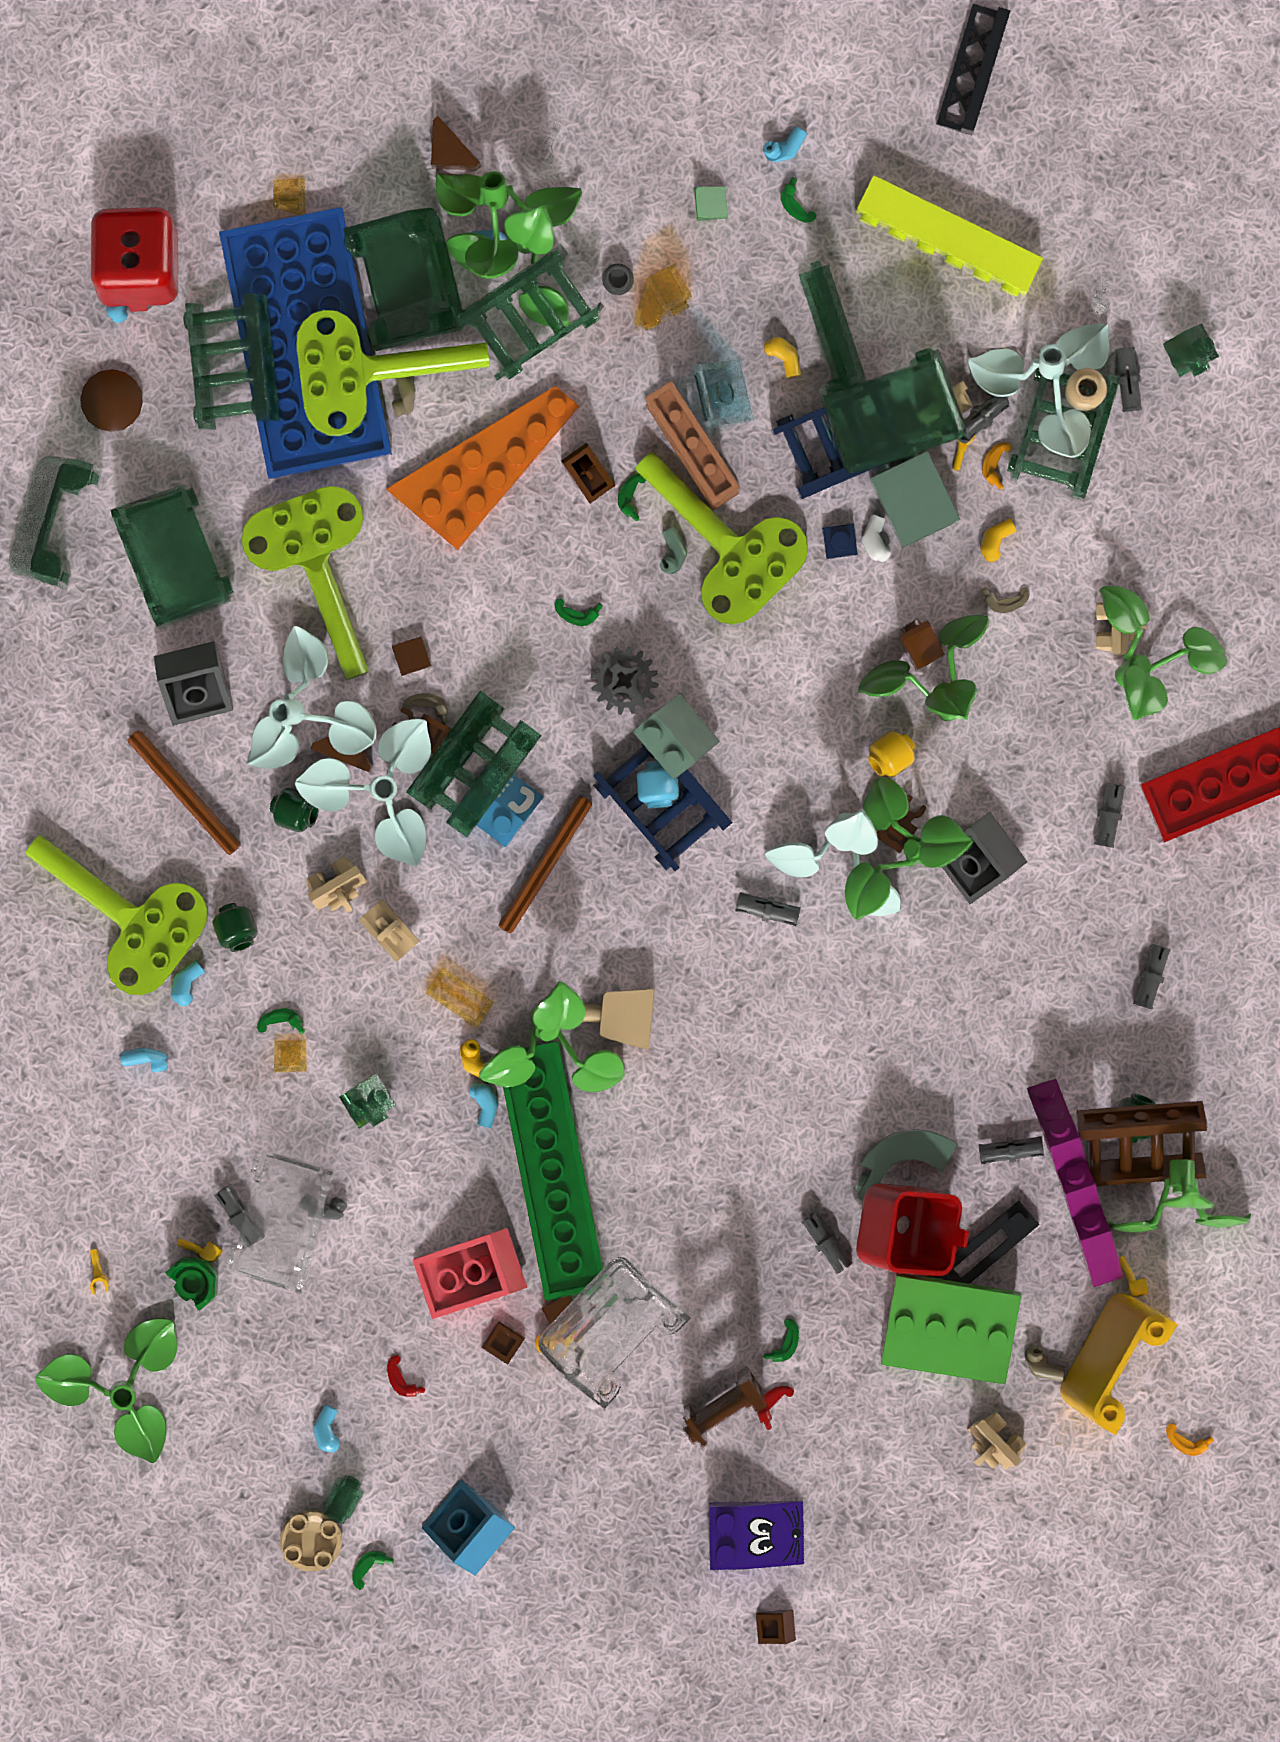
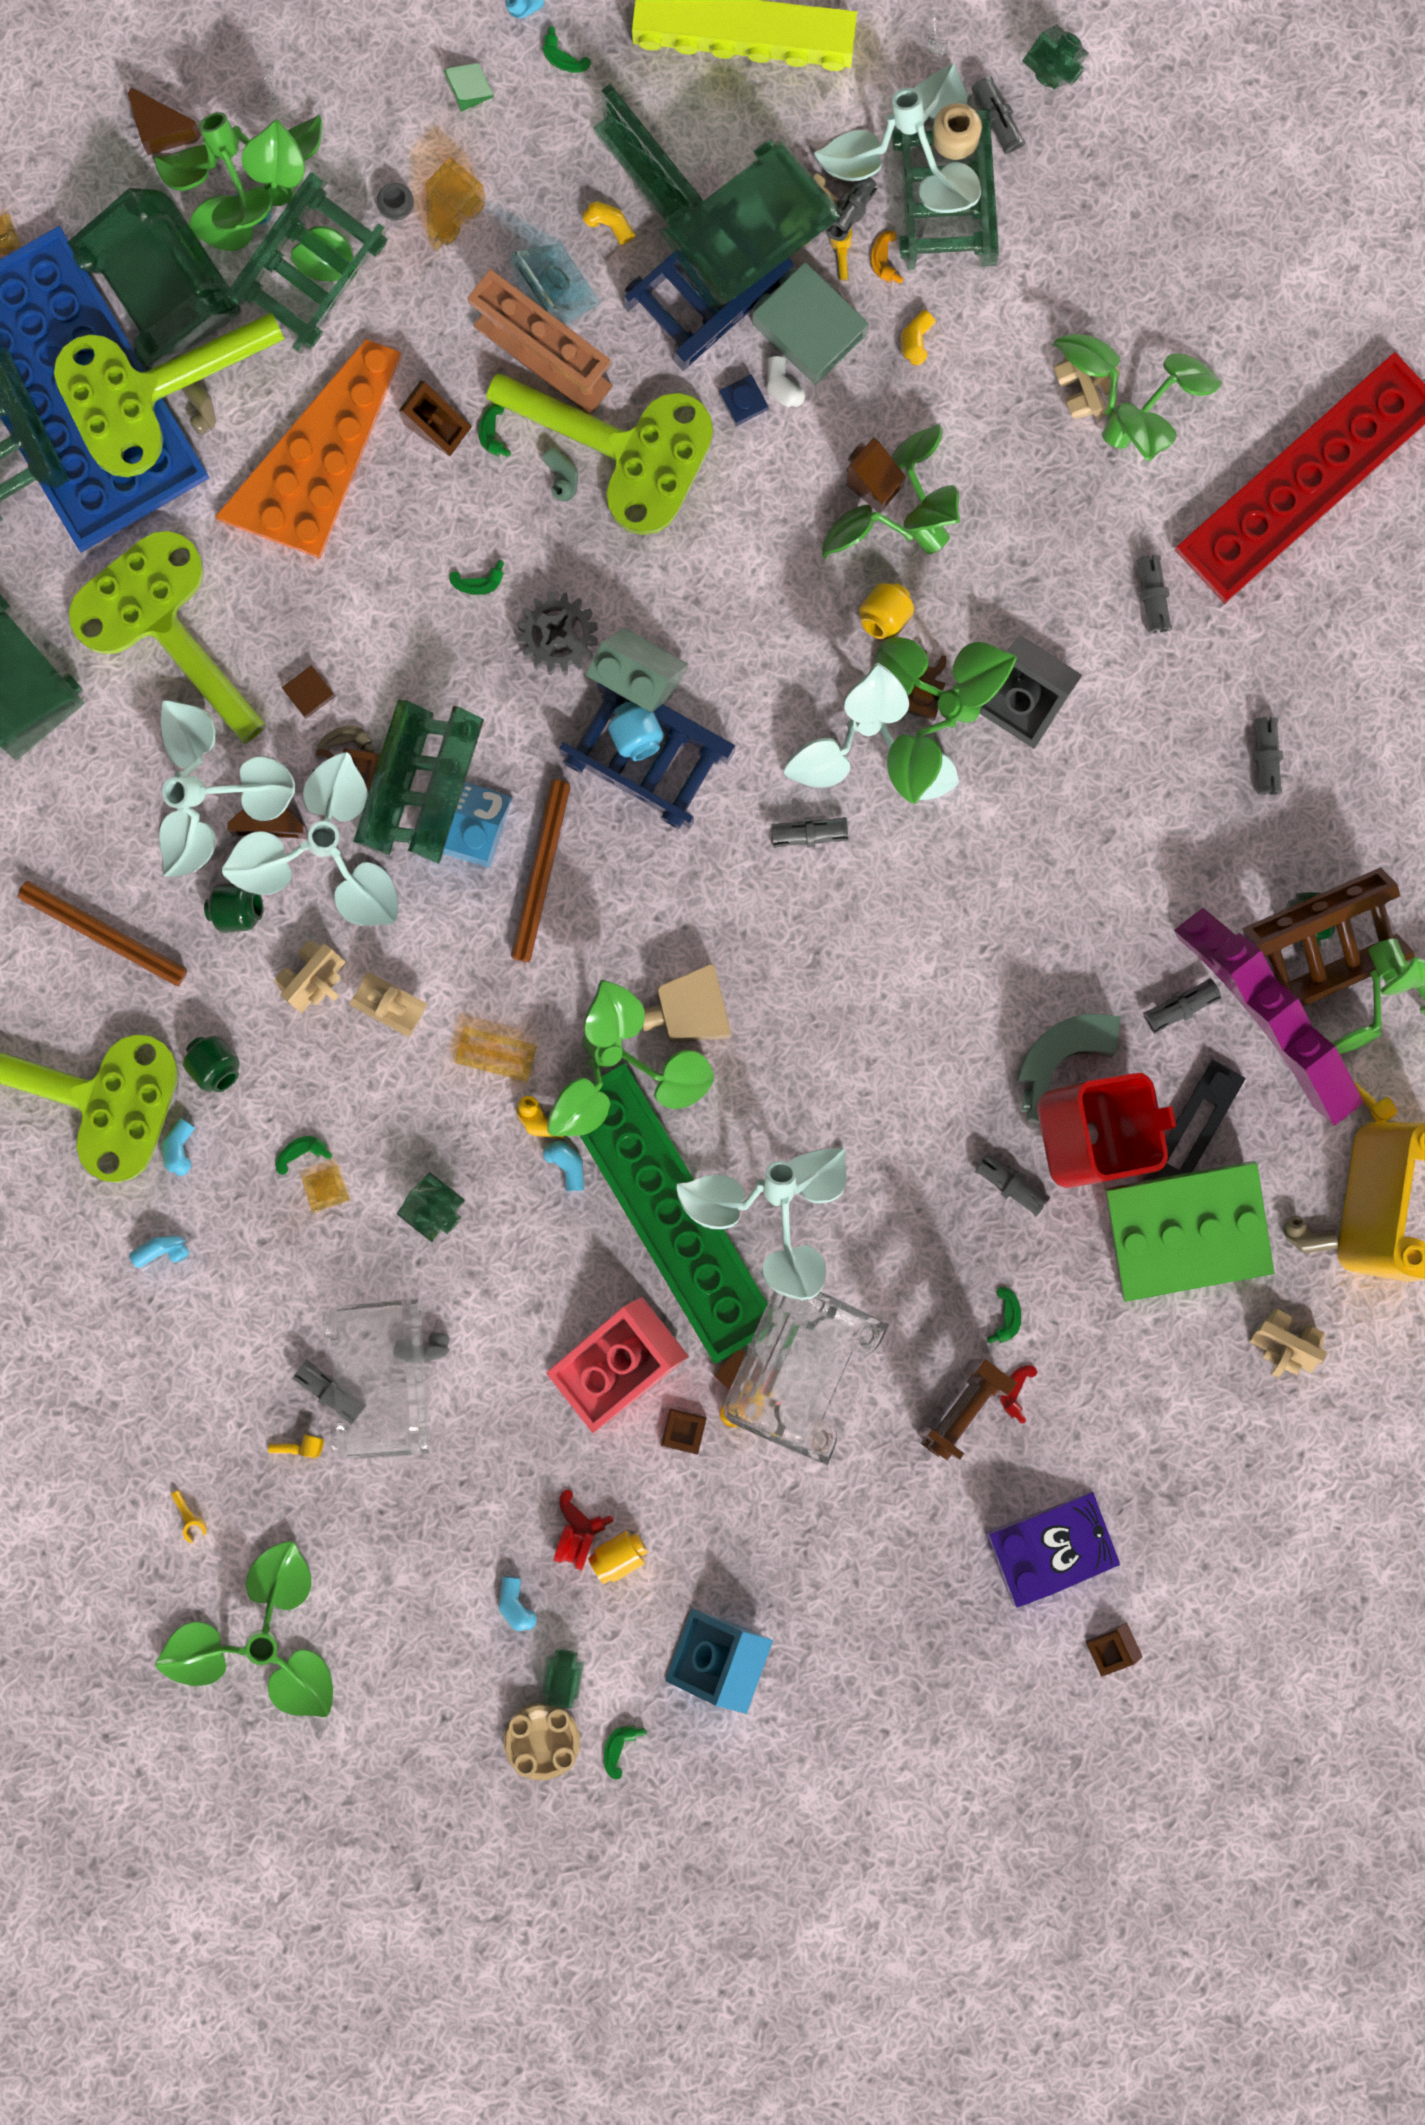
camera: 20 degrees left, 5 degrees down
(193, 683) = (70, 806): dark grey slope -> none
(194, 1280) = (302, 1485): green hair -> none
(386, 1402) = (573, 1547): none -> red wheel
(418, 1421) = (618, 1557): none -> yellow brick
(676, 1181) = (819, 1177): none -> light aqua plant
(1008, 604) = (954, 405): dark tan piece -> none

